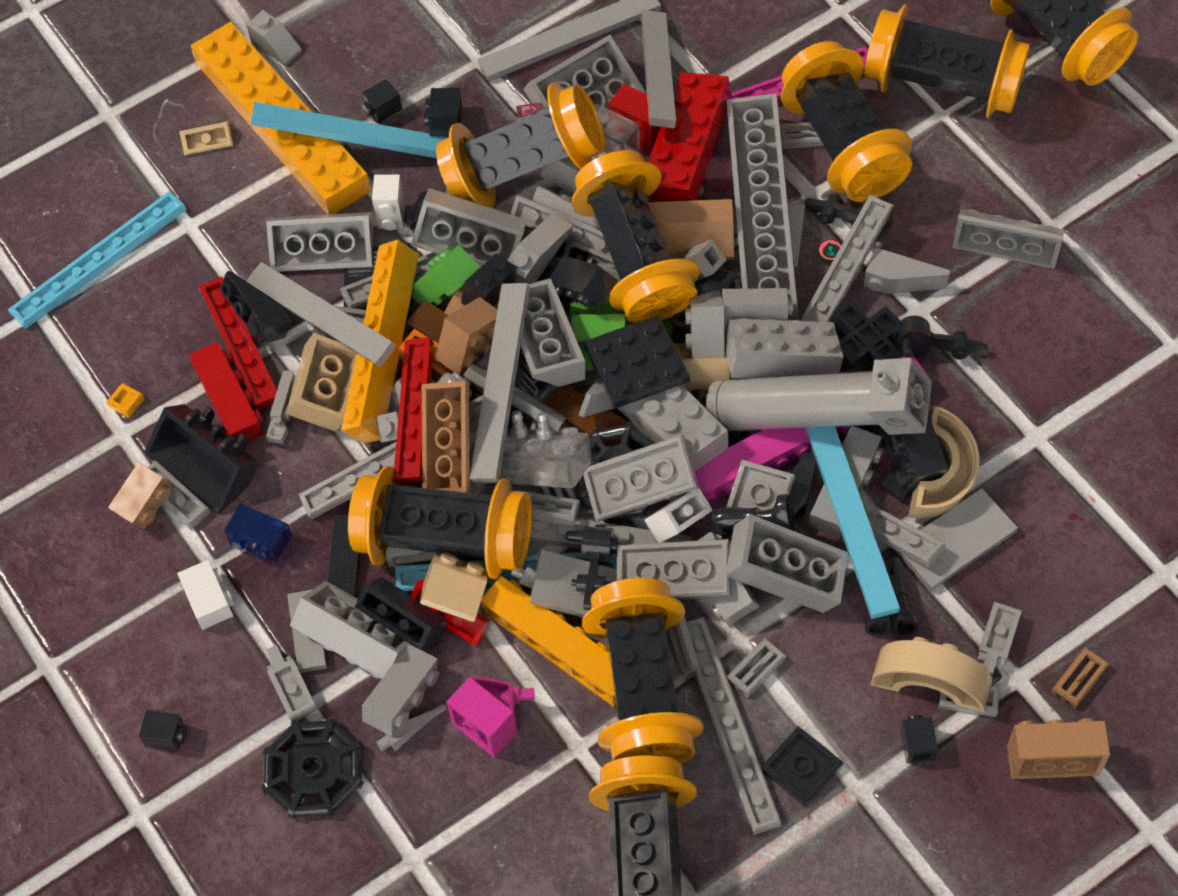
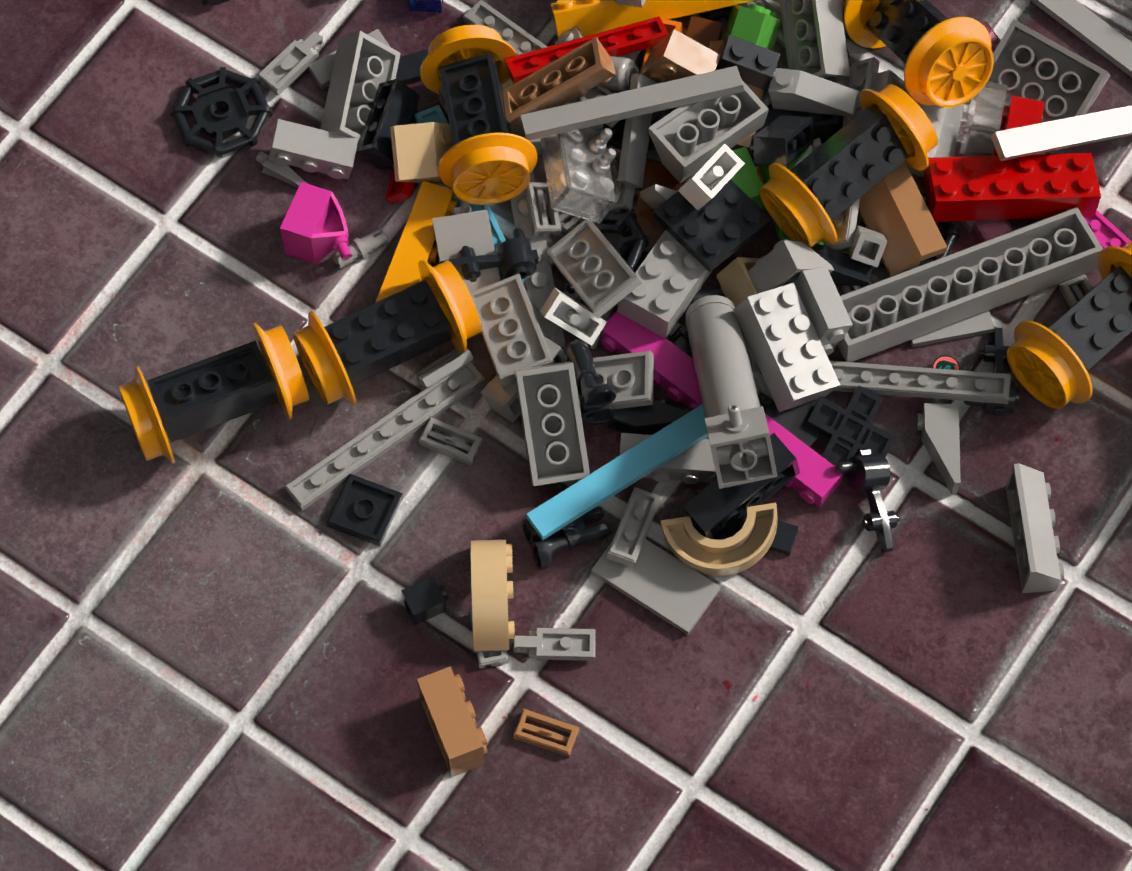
camera: 65 degrees right, 5 degrees up
(520, 678) = (362, 247): none -> light grey pin
(609, 338) = (711, 177): none -> white brick

